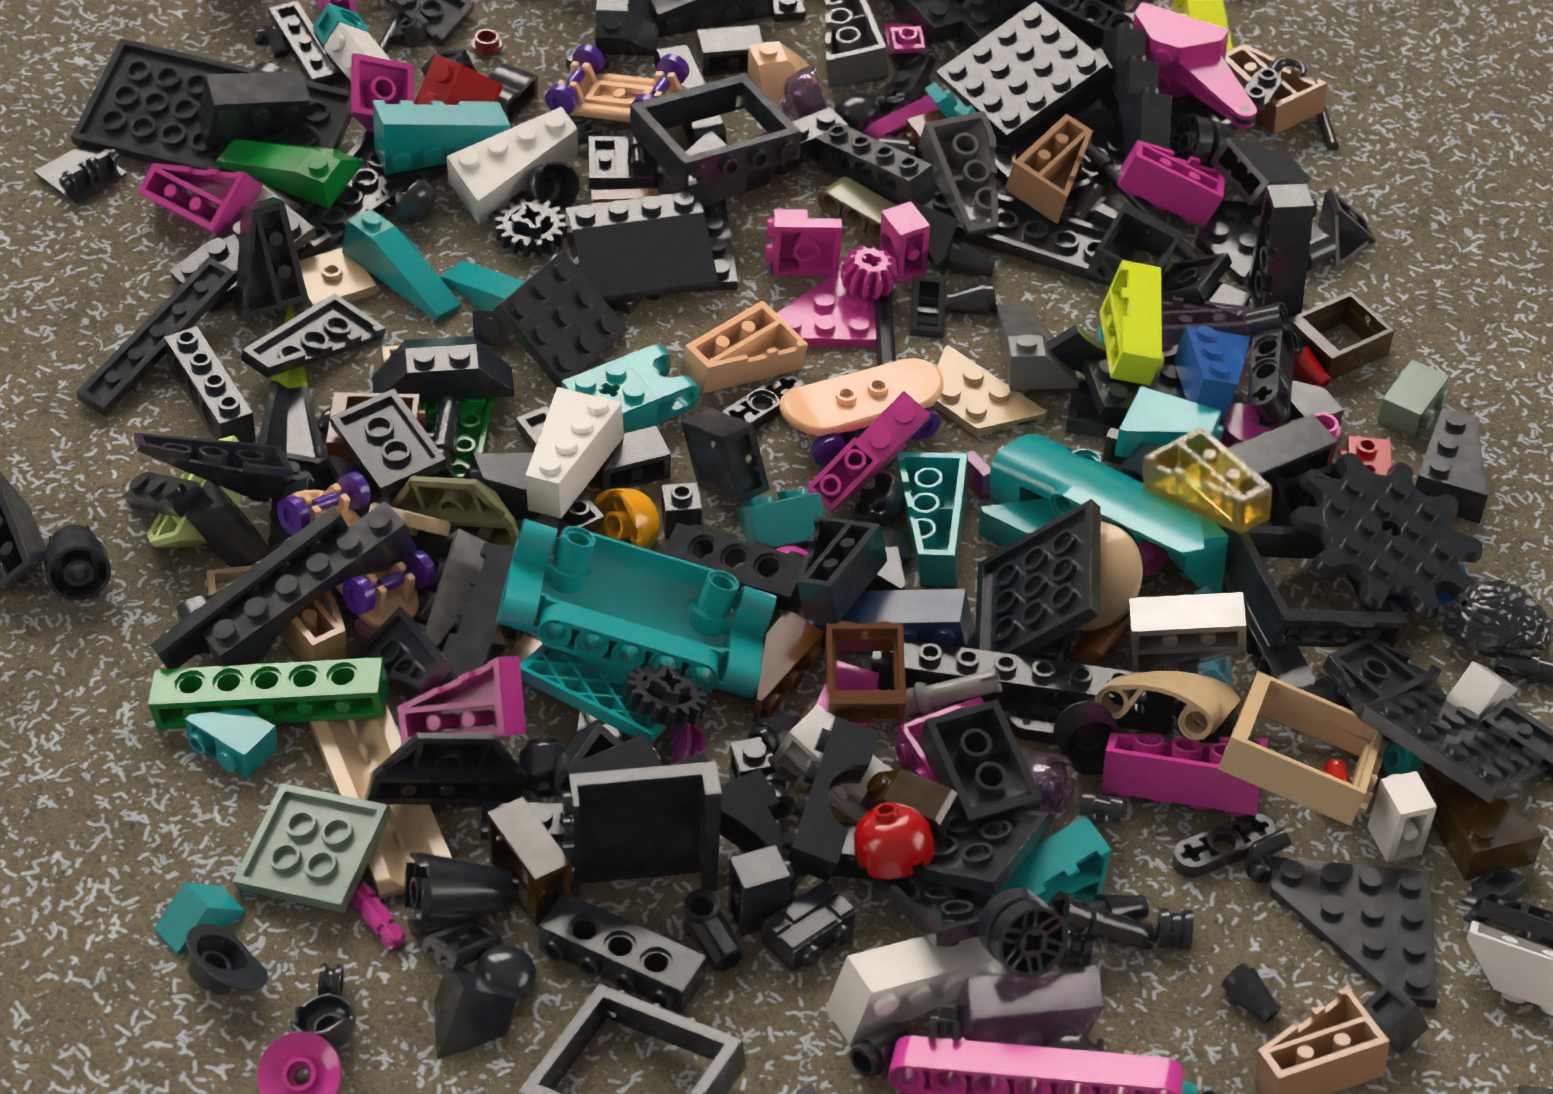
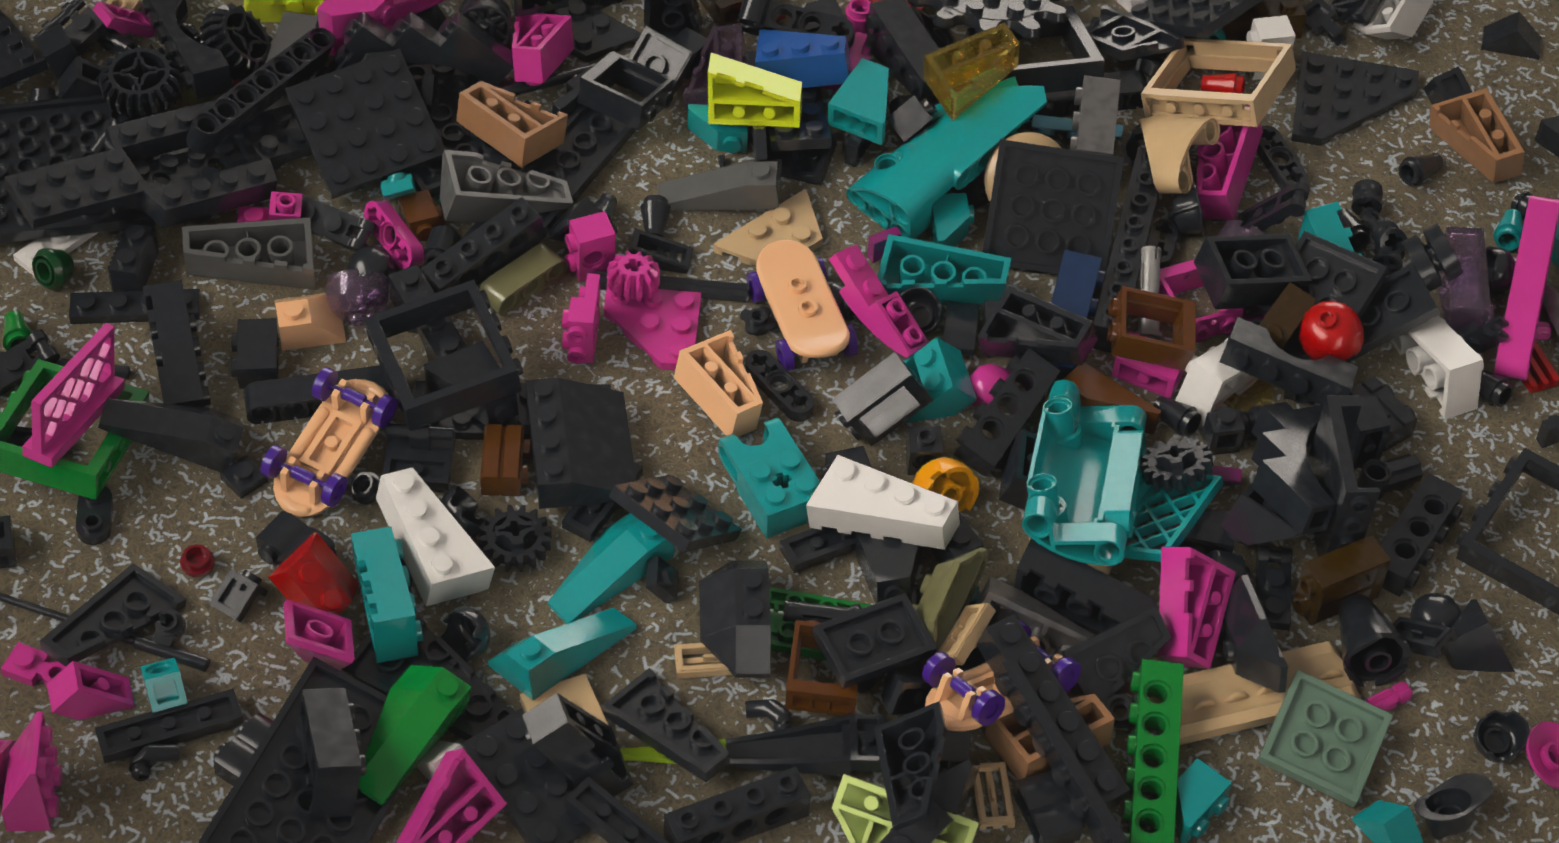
camera: 85 degrees left, 5 degrees up
(331, 979) = (1456, 734): black bush -> none
(351, 40) = (218, 668): white brick -> none
(1260, 854) = (1291, 135): black arm -> none

